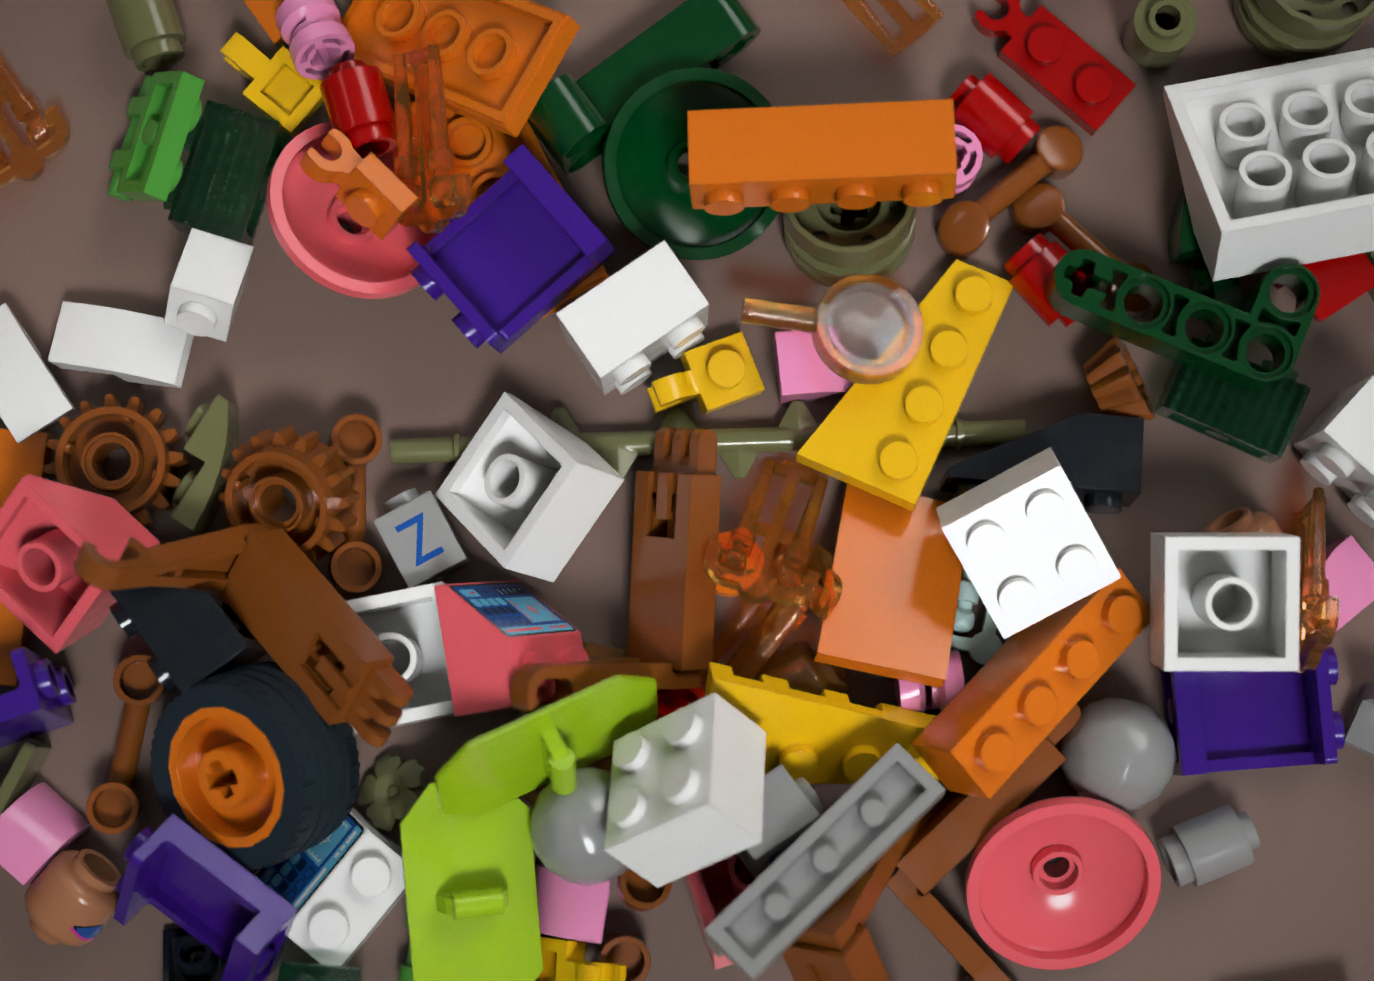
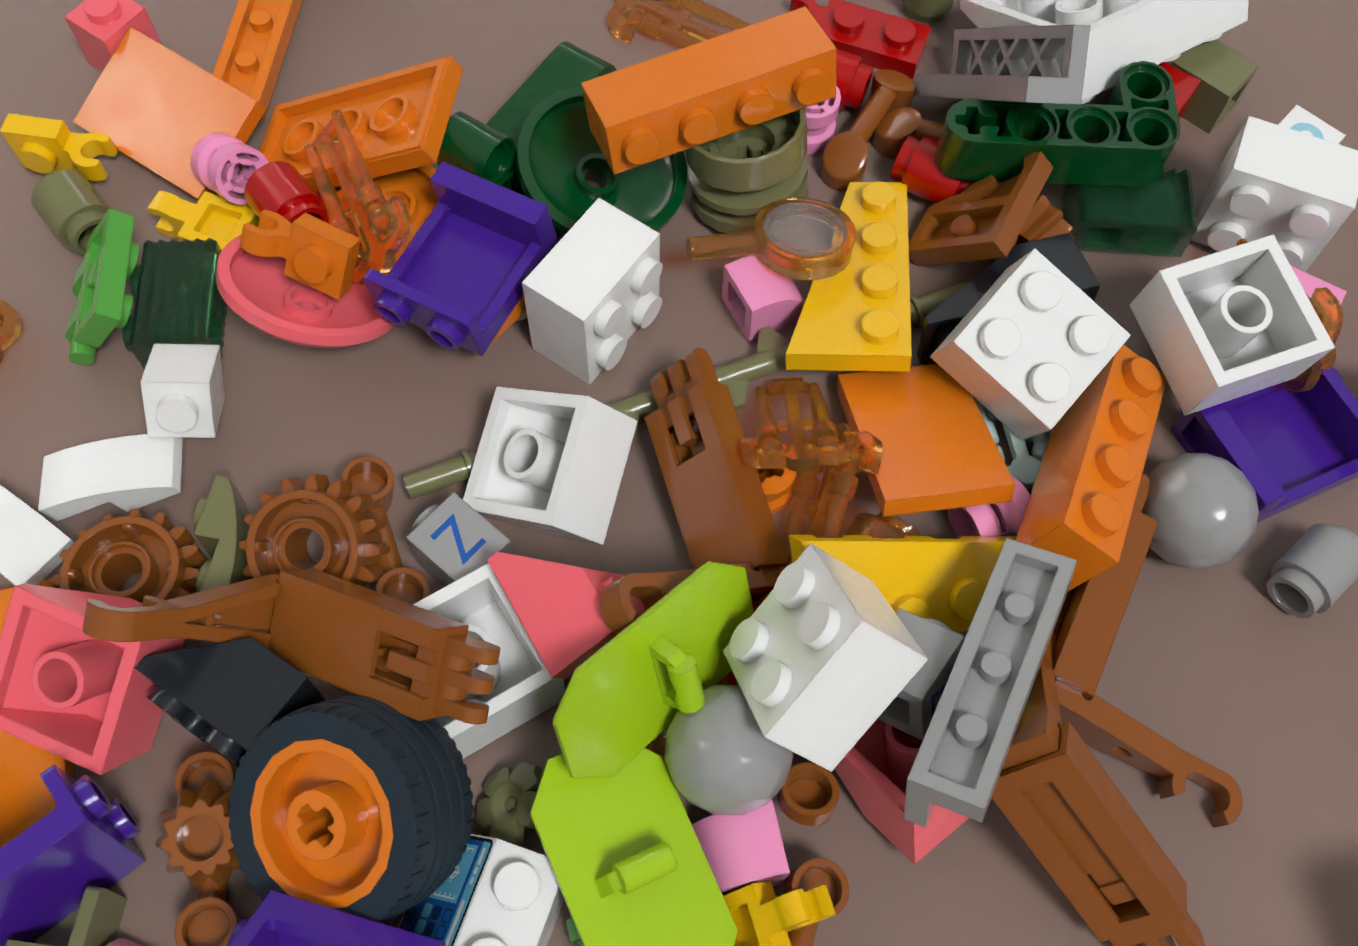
camera: 20 degrees left, 20 degrees down
(126, 727) = (199, 835): none -> dark orange piece
(713, 374) = (677, 331): yellow plate -> none
(1060, 368) = (981, 219): none -> dark orange wing
(1064, 909) = (1238, 650): coral dish -> none
(1147, 224) = (1013, 79): none -> light grey fence

